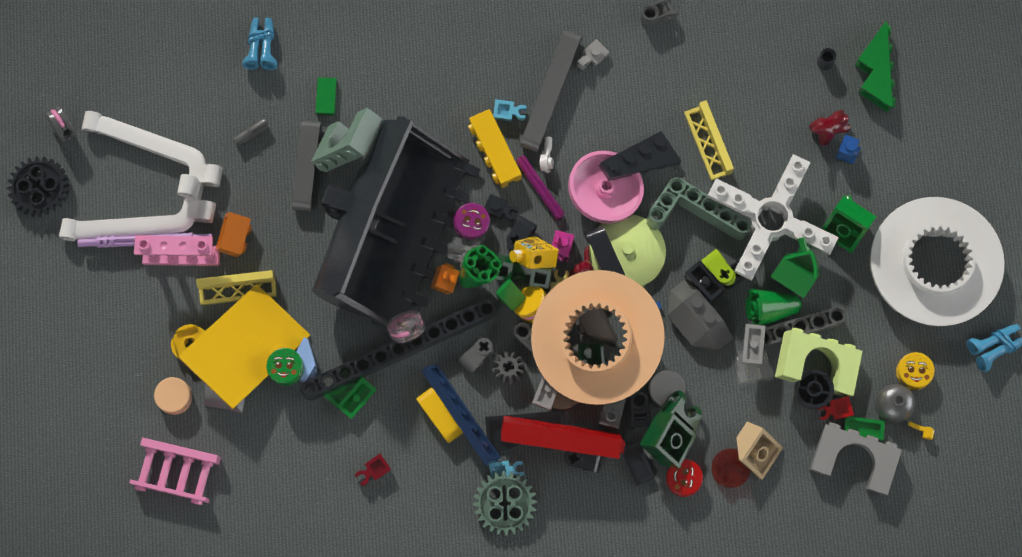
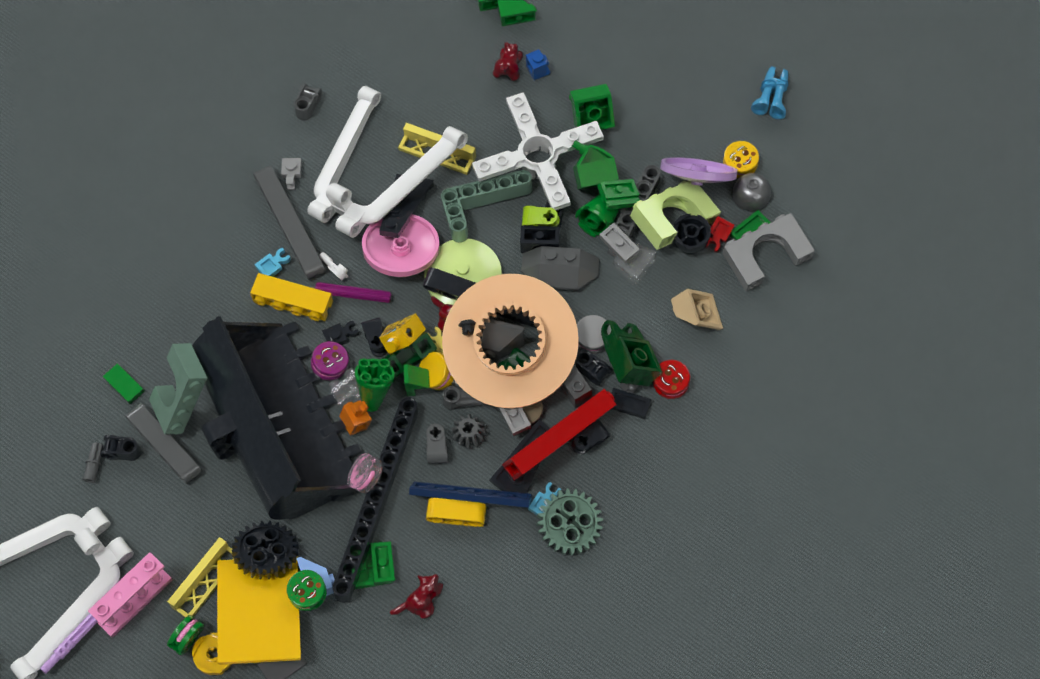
camera: 50 degrees left, 10 degrees down
(184, 313) = (185, 635): none -> green head
(233, 234) = (160, 541): orange brick -> none
(262, 37) = (24, 394): dark azure piece -> none
(275, 138) = (116, 447): none -> black piece
(285, 323) = (269, 544): none -> black gear
(353, 450) = (420, 600): none -> dark red animal
(376, 468) = (450, 596): dark red plate -> none
(563, 242) = (411, 307): dark pink brick -> none
(577, 297) = (467, 325): none -> black piece
(595, 106) = (336, 198): none -> white piece
(728, 469) = (694, 342): clear red tile -> none
(793, 308) = (619, 193): none -> green plate
(828, 52) = (454, 17): black beam -> none
(869, 349) = (698, 170): none -> lavender dish
(909, 294) = (671, 111): white piece -> none
(928, 432) = (793, 189): yellow hand -> none

